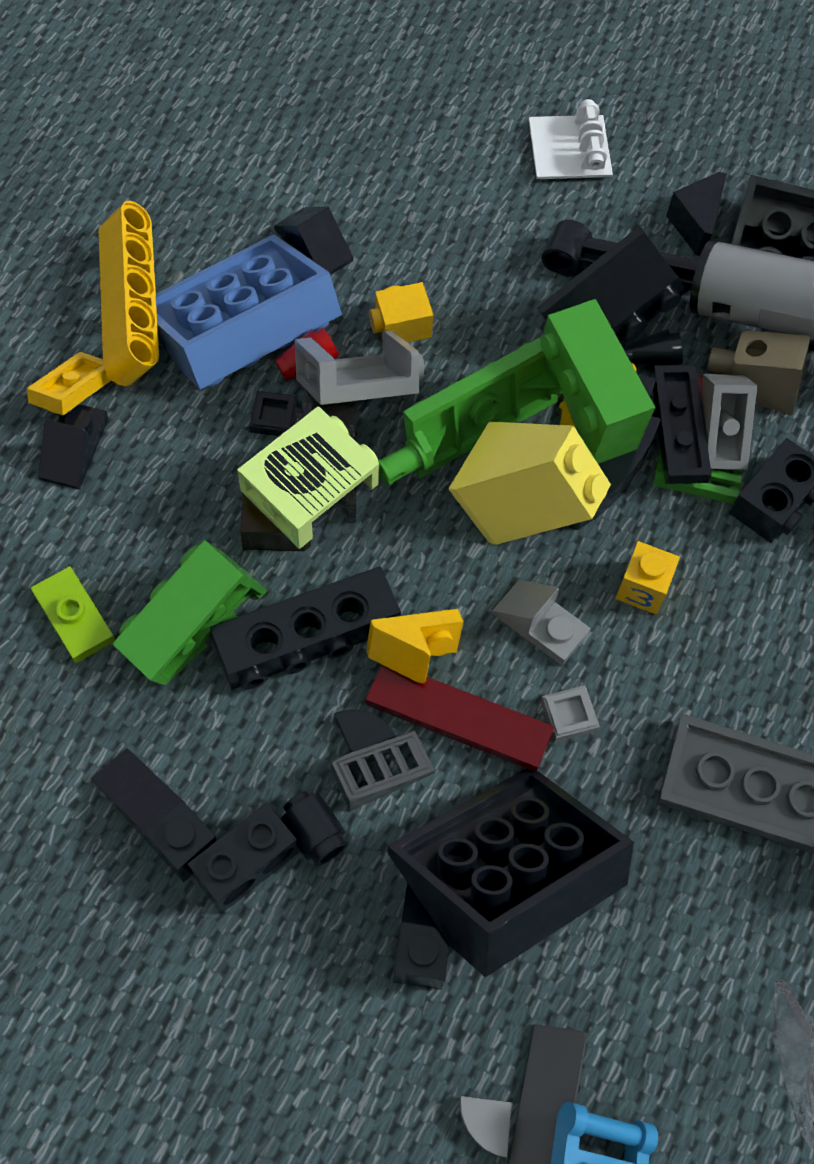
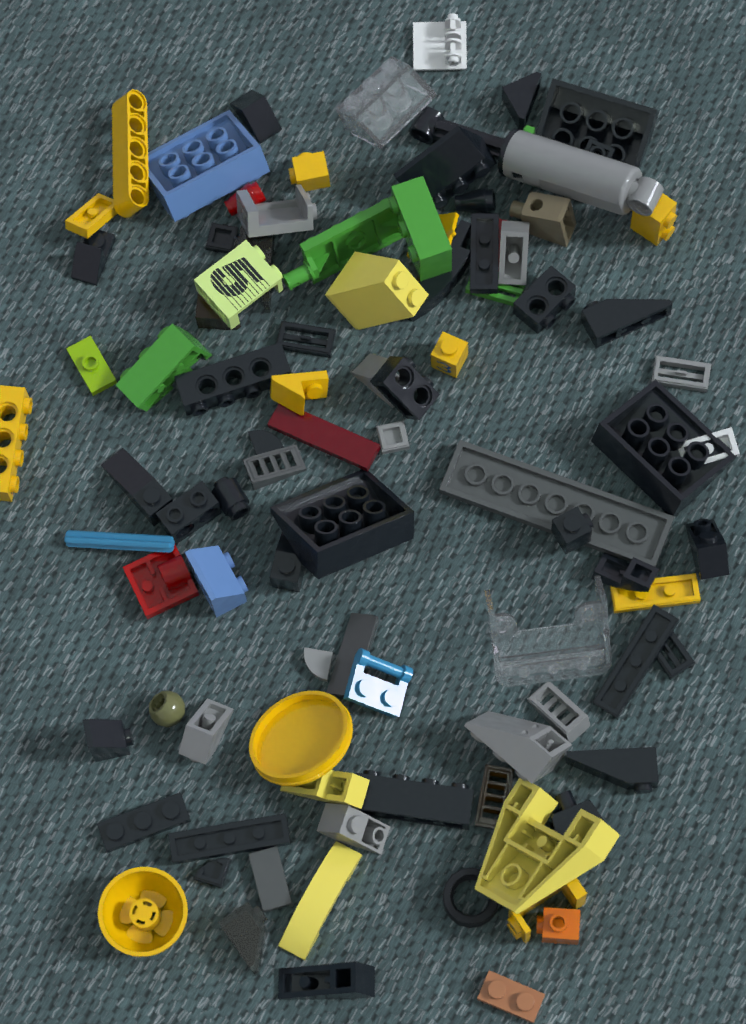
camera: 15 degrees right, 5 degrees up
(125, 914) = (119, 541): none -> dark azure axle
(199, 984) = (160, 582): none -> red plate
(299, 976) = (216, 578): none -> medium blue slope
(416, 576) = (306, 349): none -> black tile
(505, 216) = (385, 103): none -> clear slope
(587, 632) = (401, 393): none -> black brick

